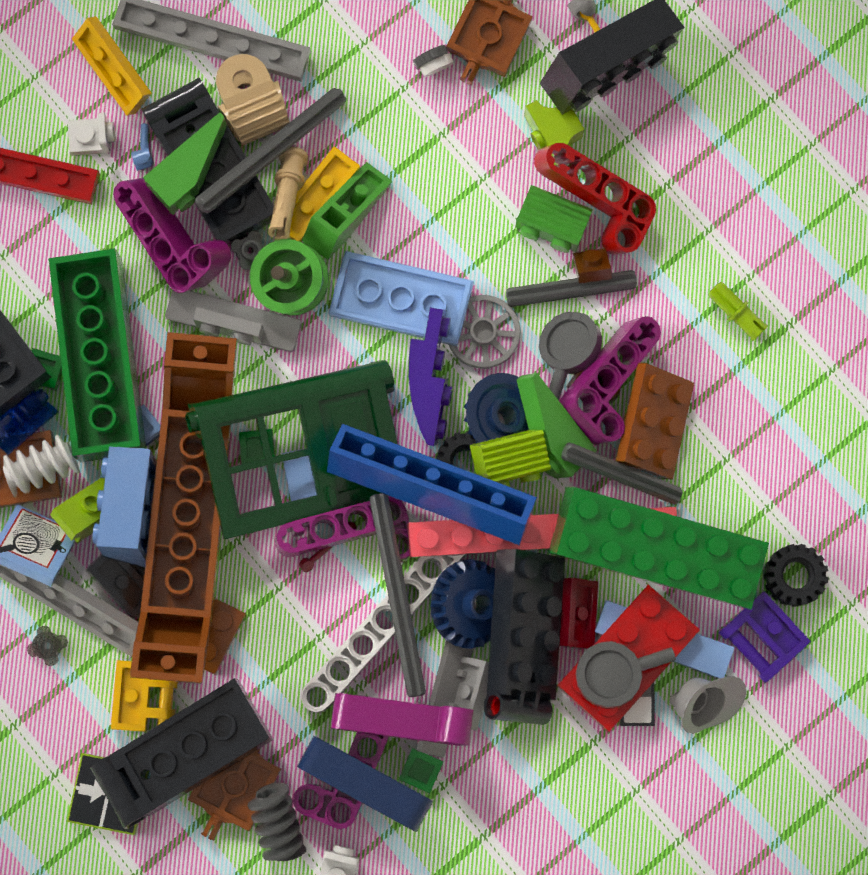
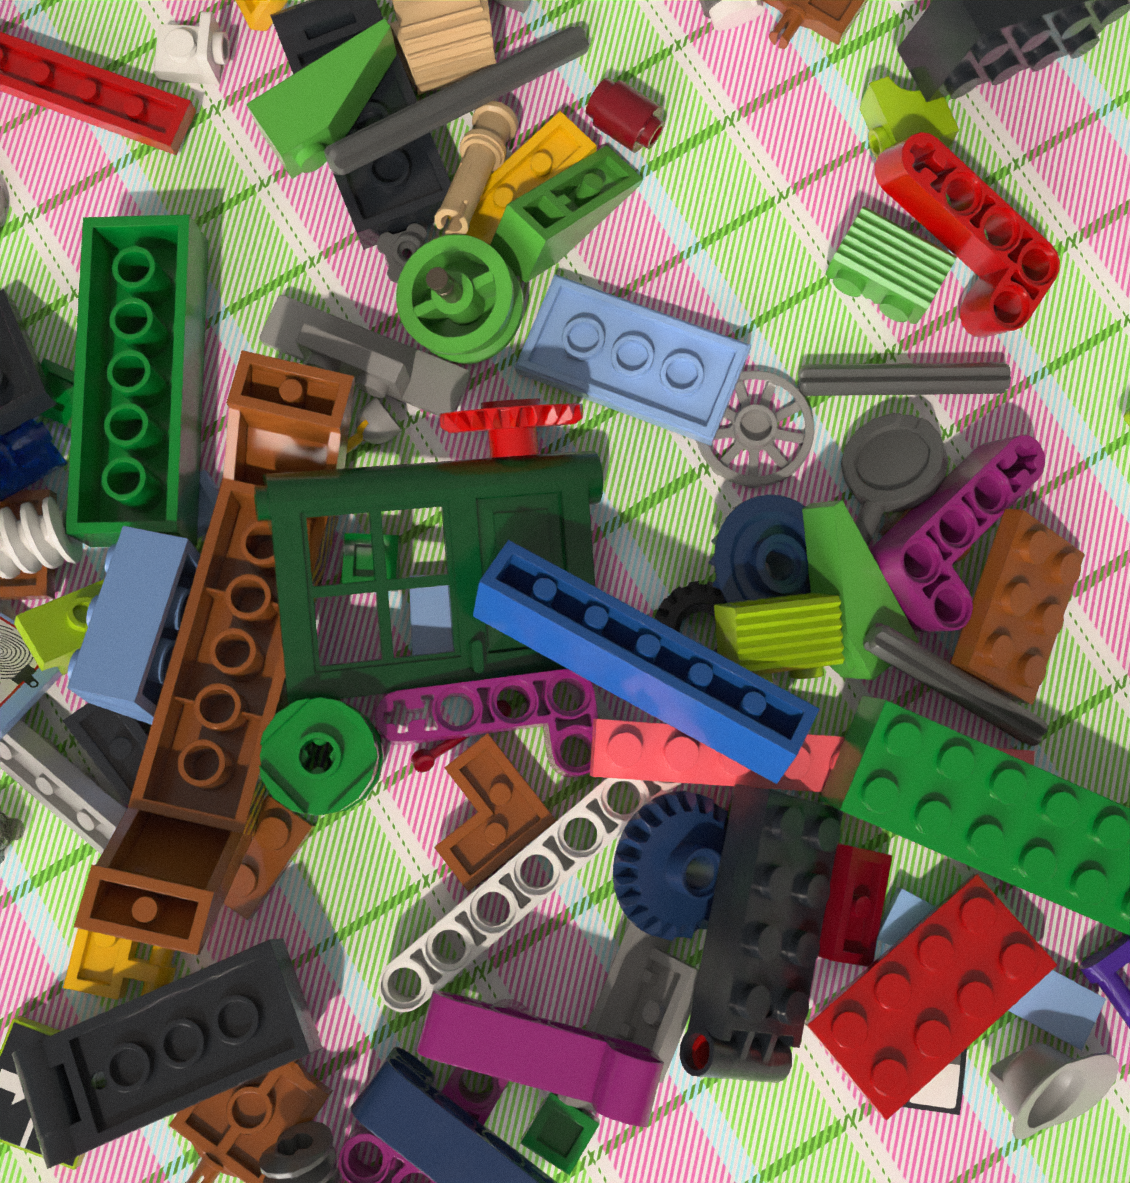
camera: 15 degrees right, 0 degrees up
(142, 158) = (270, 76): medium blue hand -> none
(179, 260) = (295, 252): magenta beam -> none
(246, 361) = (374, 425): none -> light grey hinge
(255, 586) = (355, 757): none -> green piece
(332, 351) = (511, 423): none -> red gear
(362, 588) = (506, 816): none -> dark orange plate
(376, 142) = (625, 114): none -> dark red brick
(397, 595) = (561, 839): dark grey axle -> none
(428, 391) = (654, 507): dark purple slope -> none
(592, 265) = (942, 346): reddish brown plate -> none
(612, 673) = (906, 1026): dark grey piece -> none

